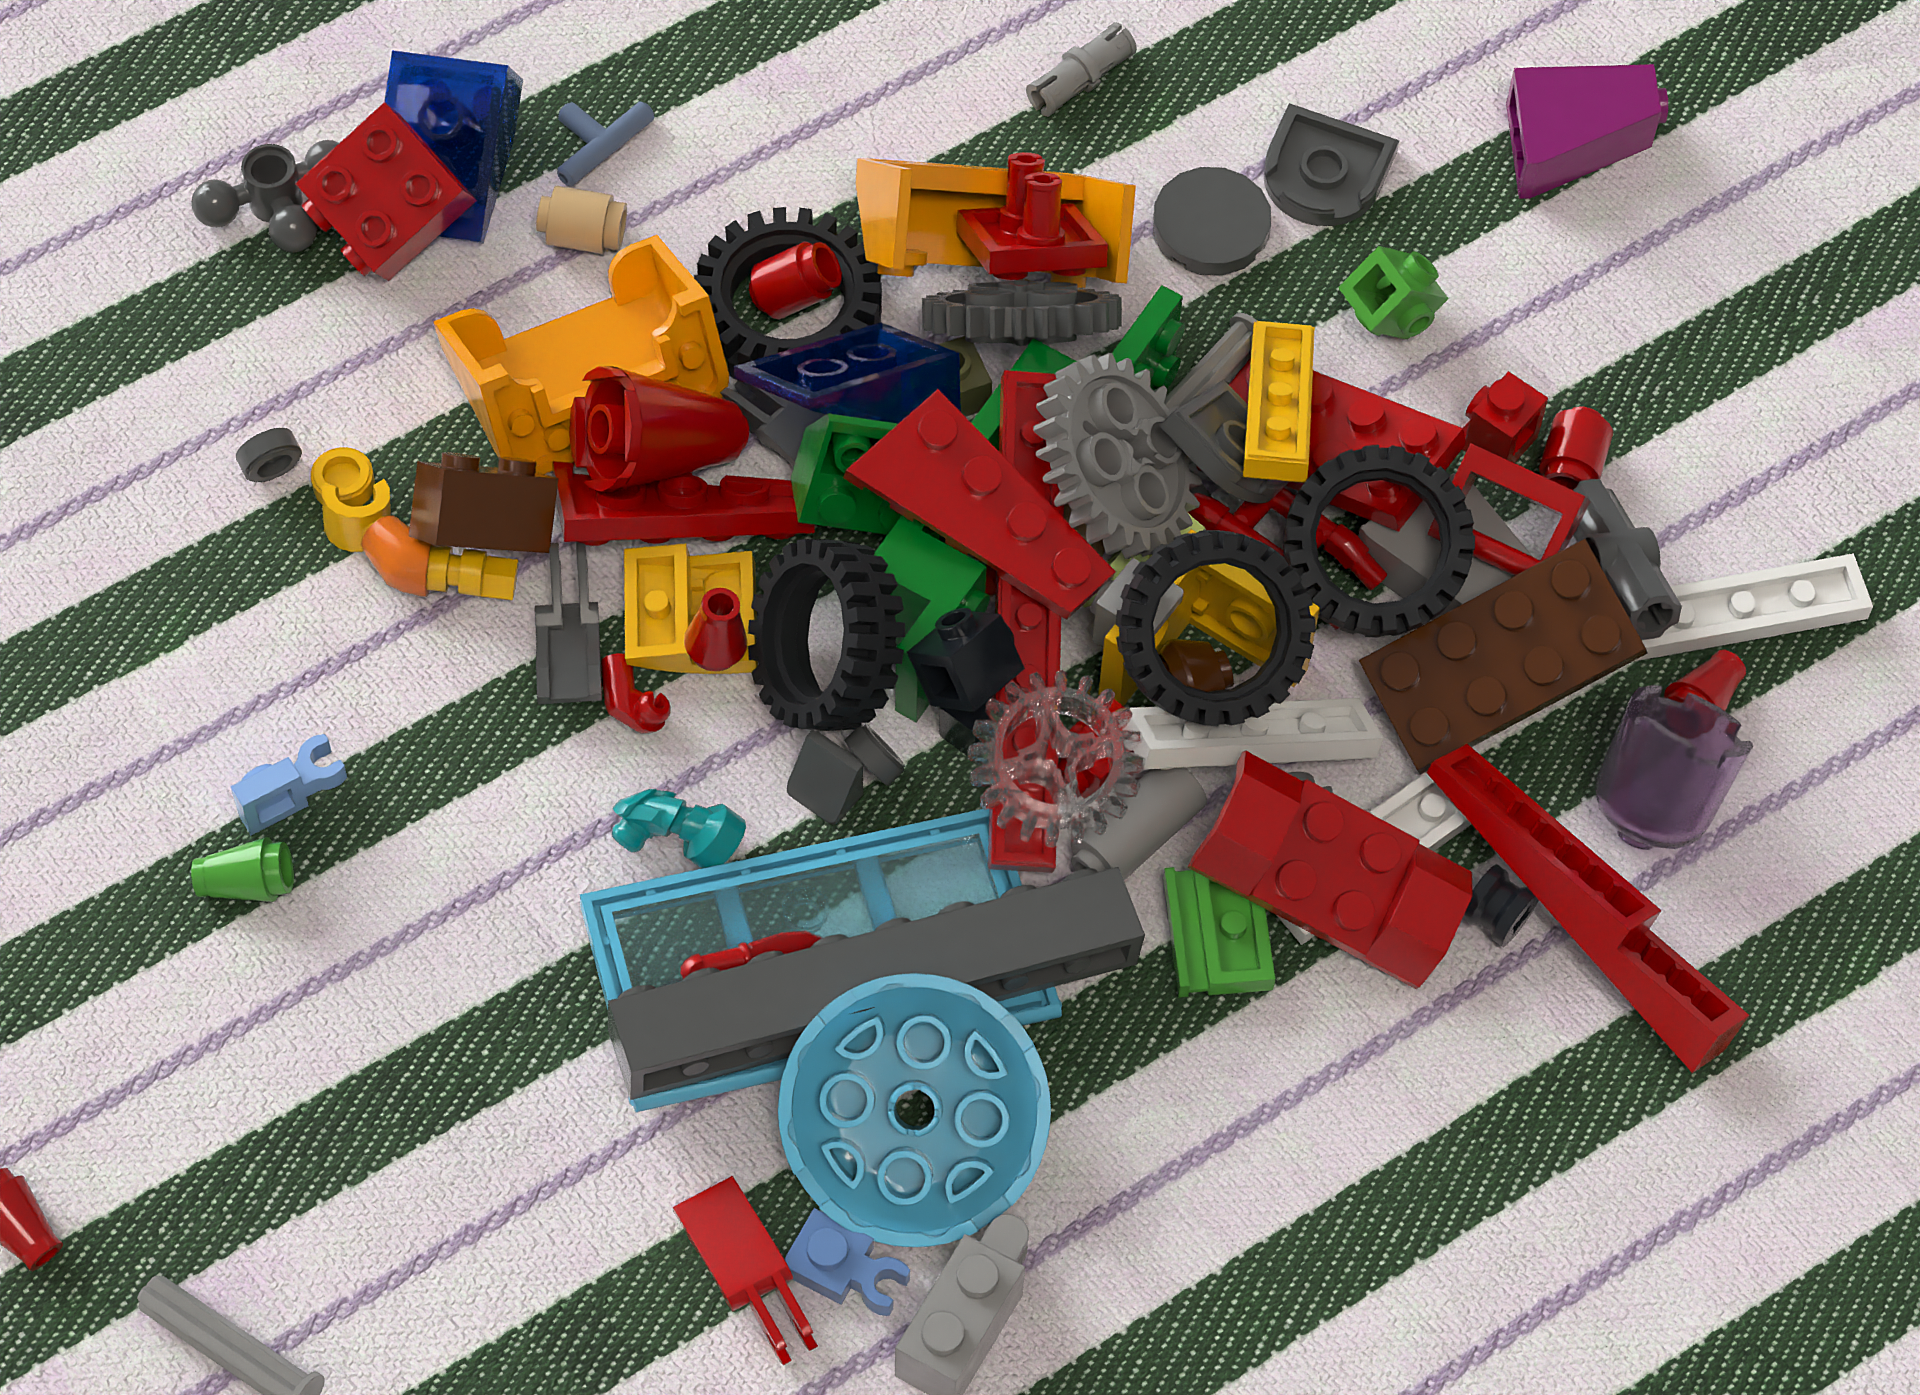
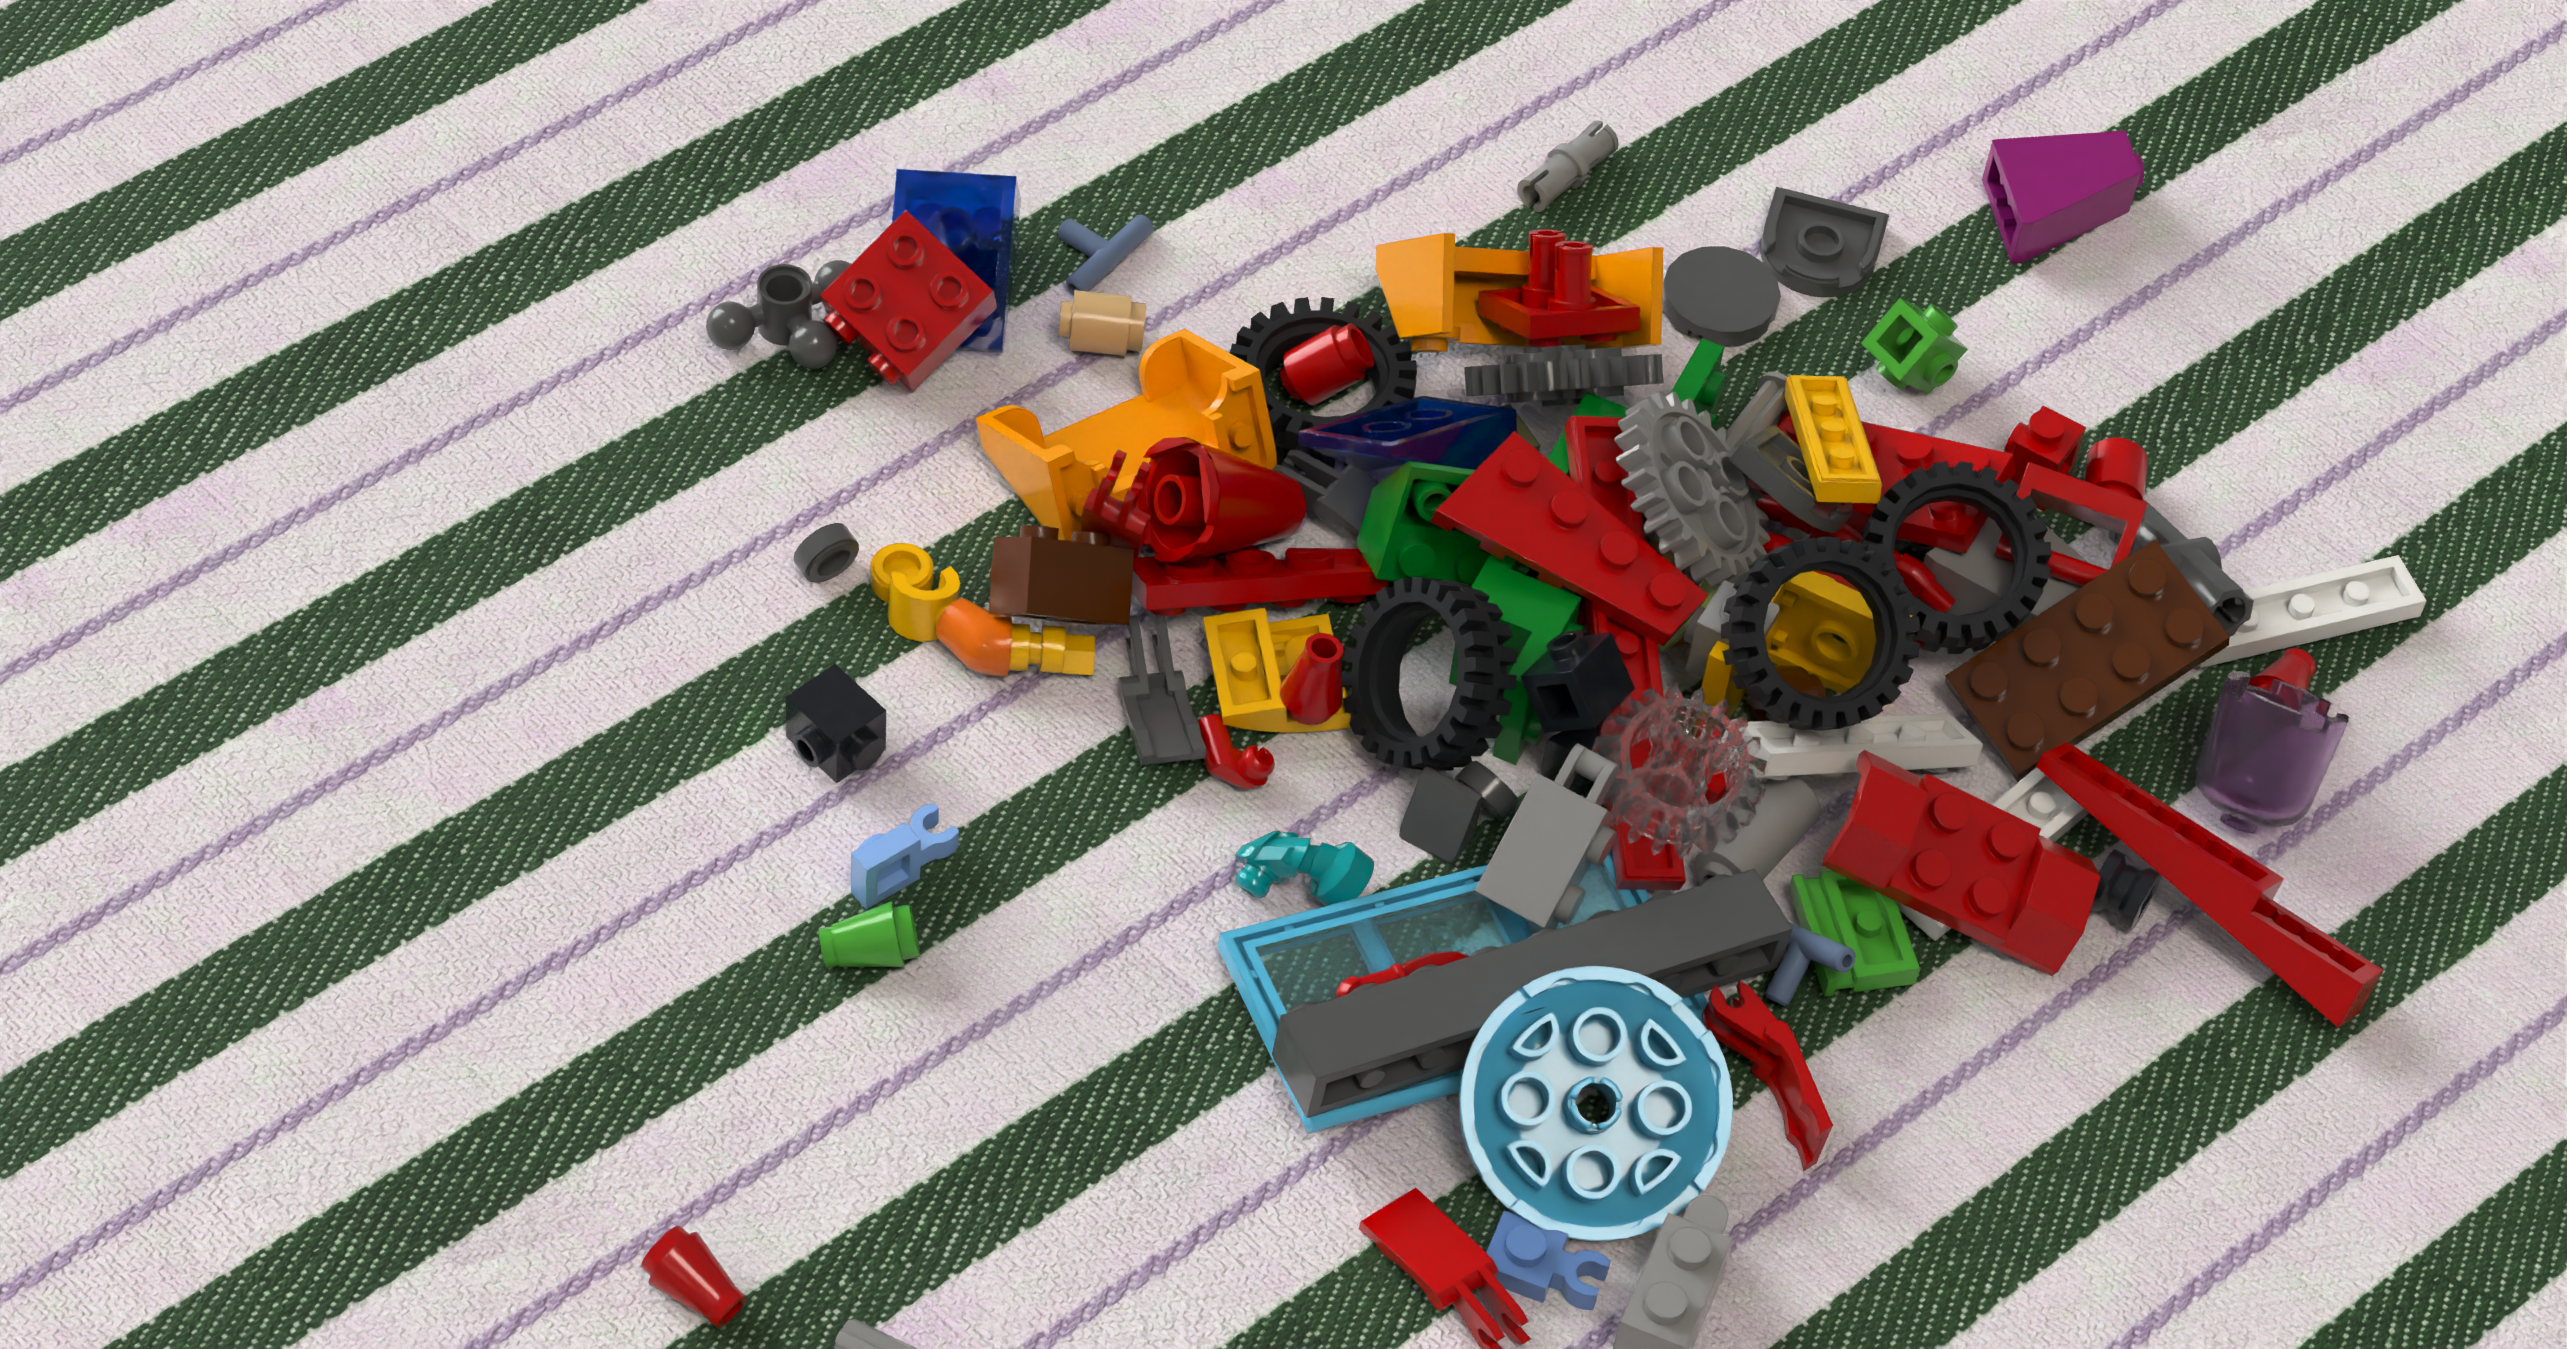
camera: 10 degrees left, 10 degrees down
(245, 641) = (835, 724): none -> black brick
(538, 447) = (1116, 517): none -> red arm
(915, 830) = (1553, 843): none -> light grey brick
(1102, 1045) = (1777, 1061): none -> red arm
(1160, 950) = (1801, 949): none -> sand blue piece

